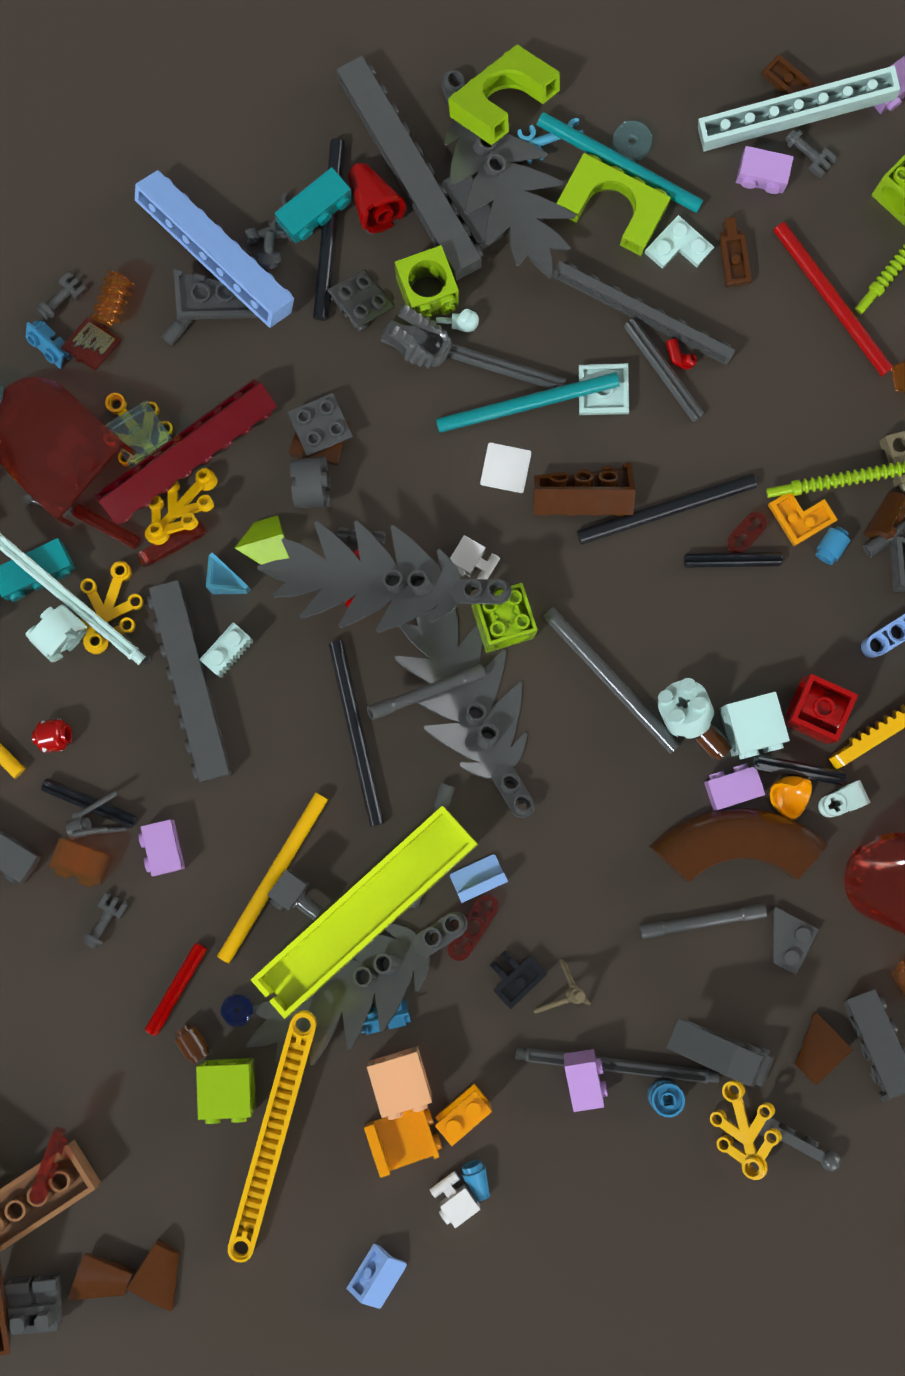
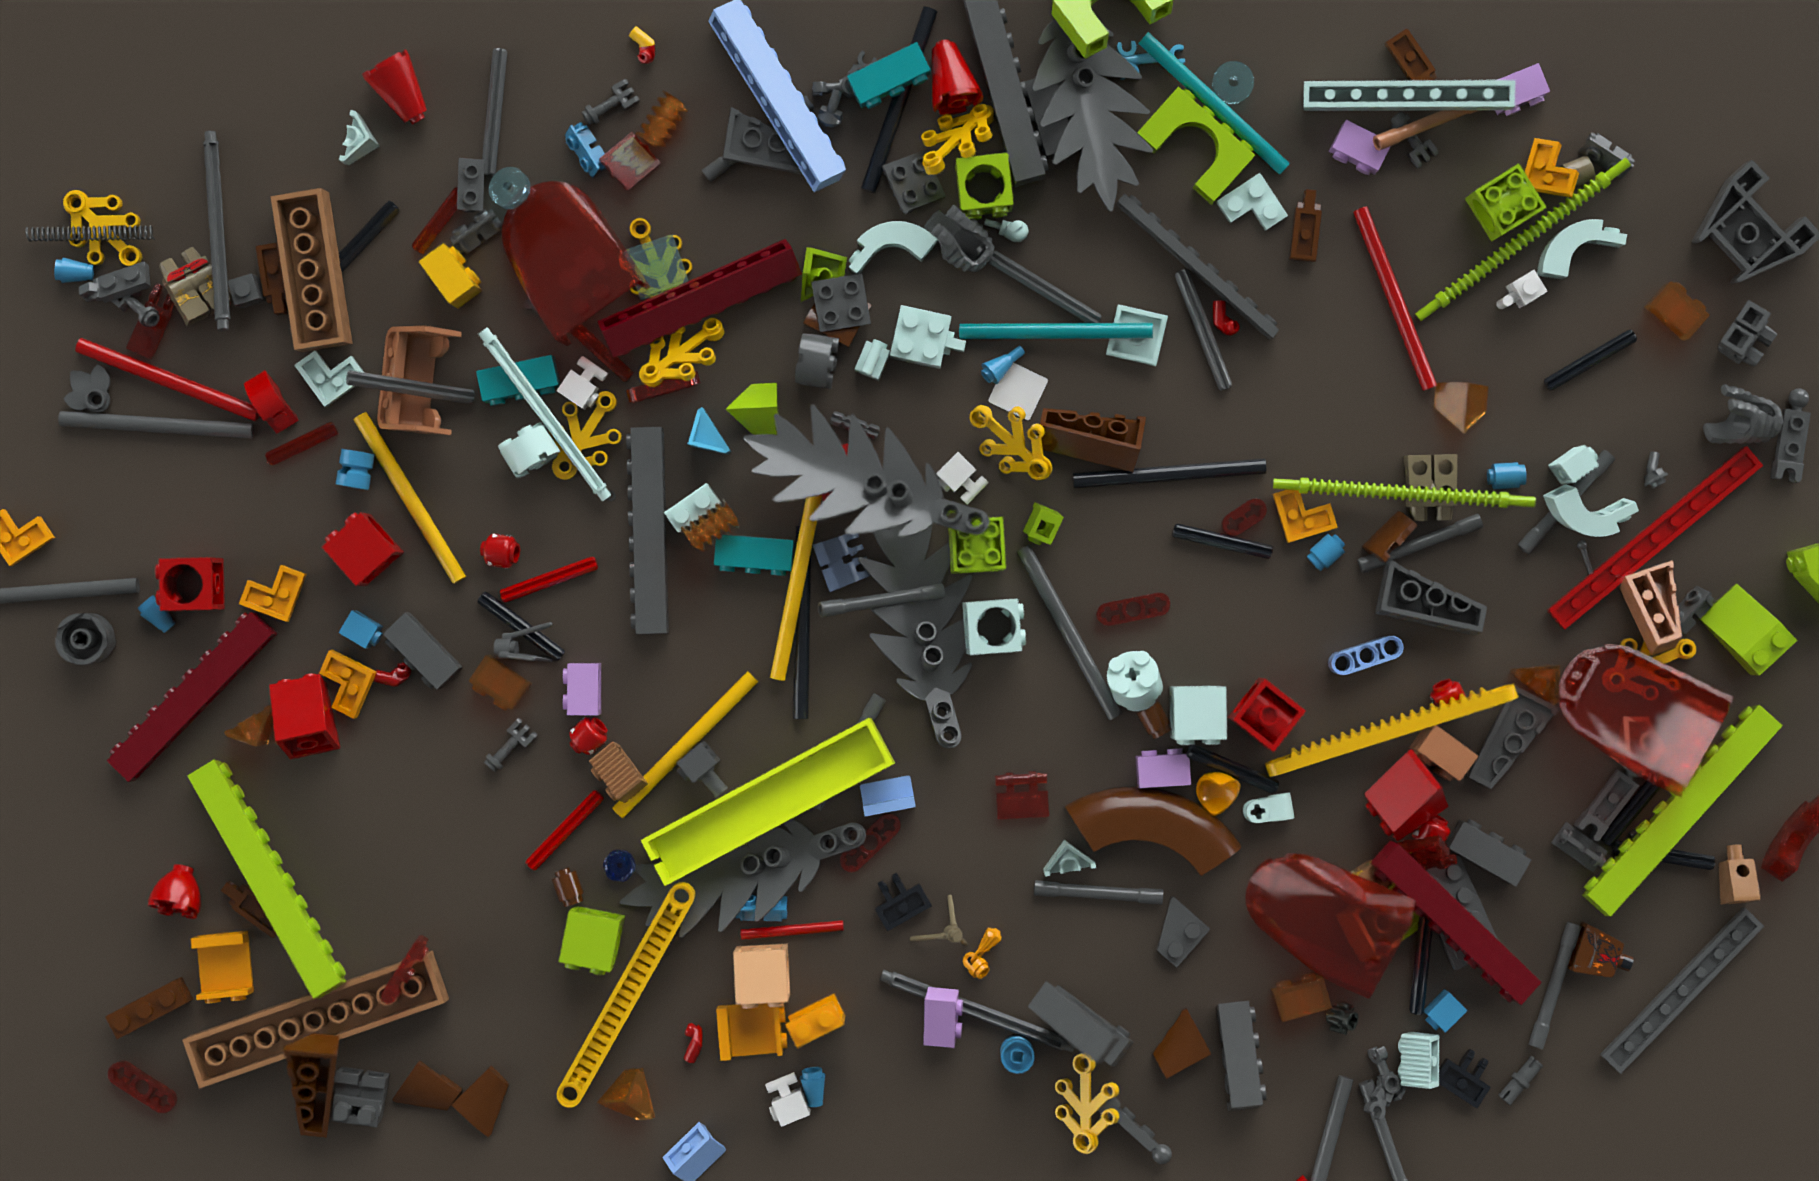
camera: 20 degrees right, 5 degrees up
(82, 235) = (646, 45): none -> arm
(92, 563) = (579, 388): none -> white brick
(105, 752) = (548, 579): none -> red axle
(177, 891) = (588, 735): none -> red head
(213, 920) = (617, 772): none -> medium nougat brick
(247, 660) = (711, 526): none -> clear orange piece
(291, 395) = (820, 266): none -> lime slope
(294, 679) = (754, 554): none -> teal brick
(300, 1234) = (629, 1095): none -> clear orange slope
(342, 701) = (795, 589): none -> yellow piece
(352, 1167) = (695, 1045): none -> red arm
(354, 351) = (892, 234): none -> light aqua arch
(363, 470) = (873, 359): none -> light aqua brick
(368, 661) = (831, 554): none -> sand blue legs
(405, 438) = (923, 337): none -> light aqua hinge
(407, 226) = (979, 117): none -> yellow plant
(418, 1031) = (787, 930): none -> red bar
(481, 450) = (996, 368): none -> dark azure cone
(515, 514) = (1014, 443): none -> yellow plant
(517, 680) = (977, 643): none -> light aqua brick
(568, 583) = (1051, 524): none -> lime brick
(607, 854) = (1022, 804): none -> clear red plate
(607, 1020) = (979, 966): none -> light orange piece
(666, 896) = (1068, 859): none -> light aqua slope
(679, 630) = (1116, 618): none -> clear red beam
(796, 147) = (1395, 135): none -> nougat piece

